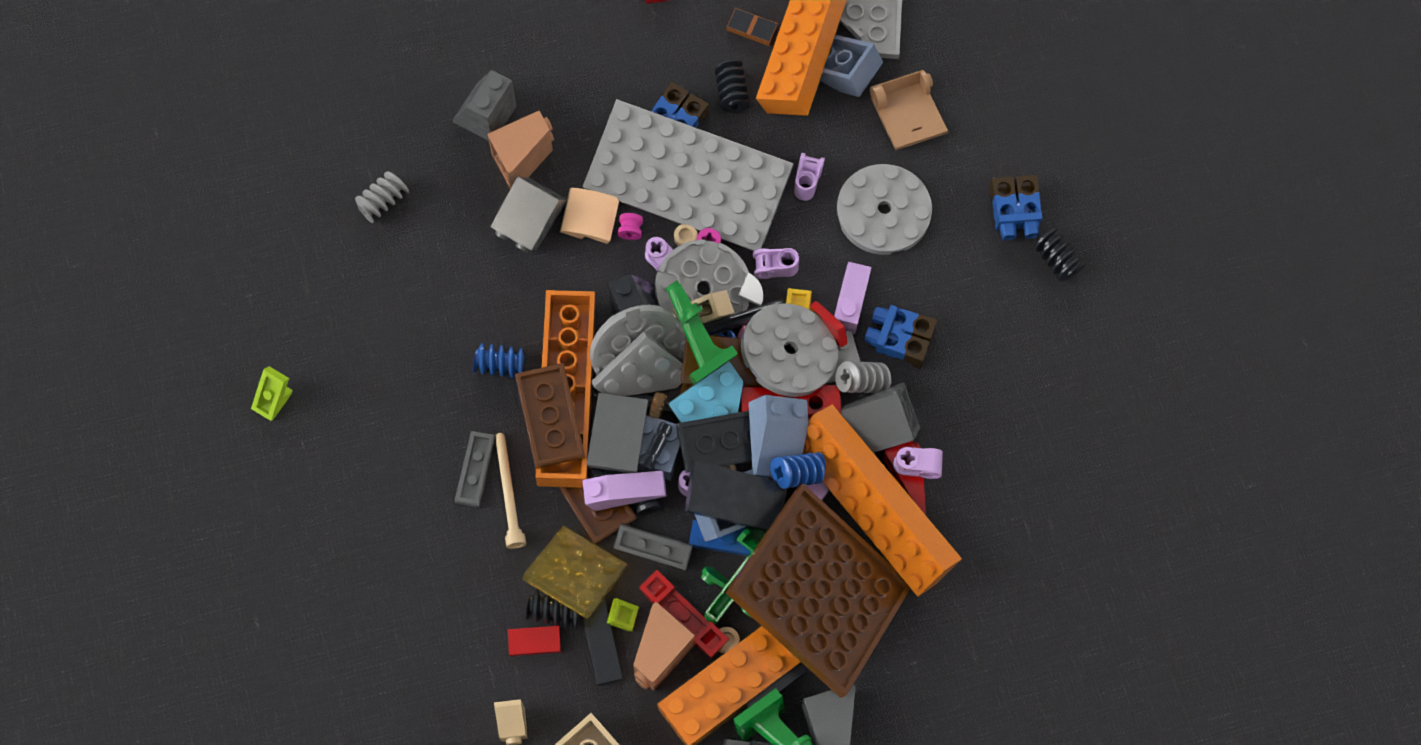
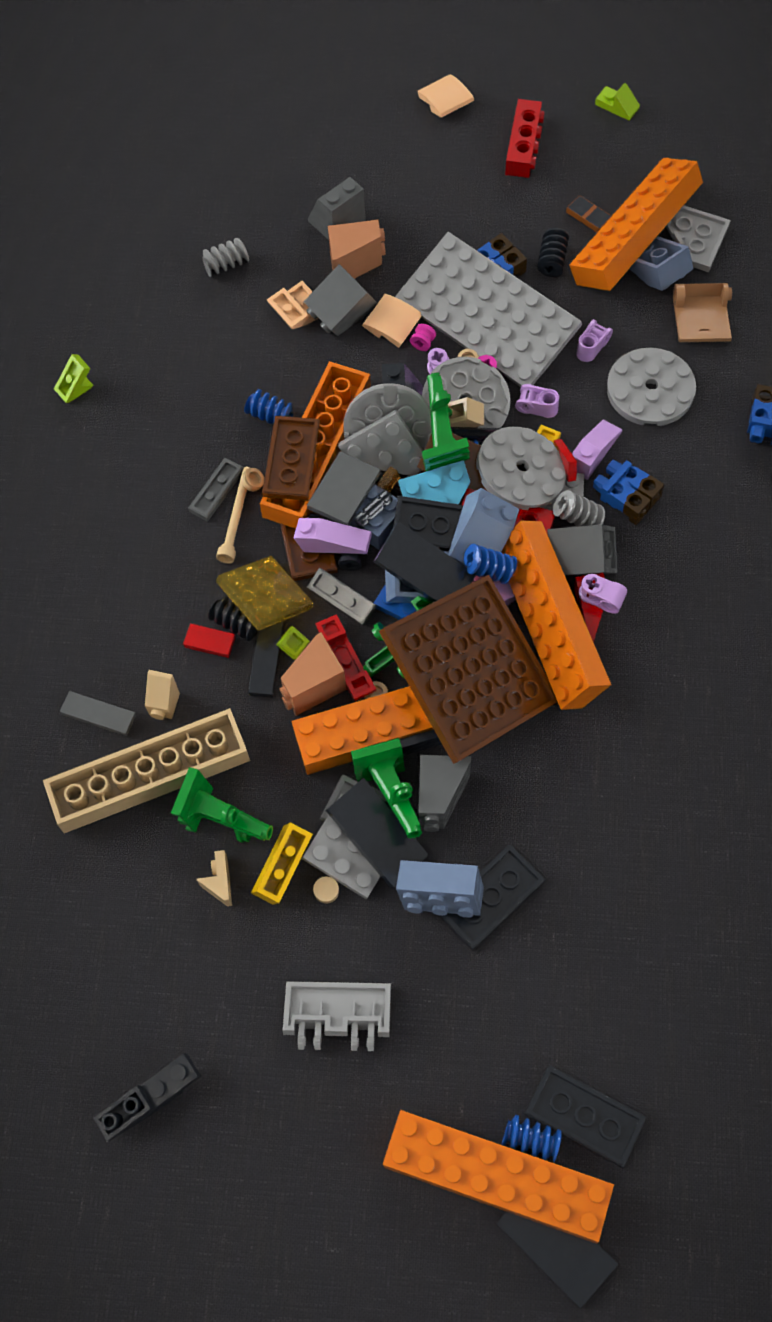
camera: 25 degrees right, 5 degrees down
(474, 229) = (291, 305): none -> light nougat slope
(511, 446) = (252, 479): none -> tan tile
(751, 290) = (507, 413): white tile -> none

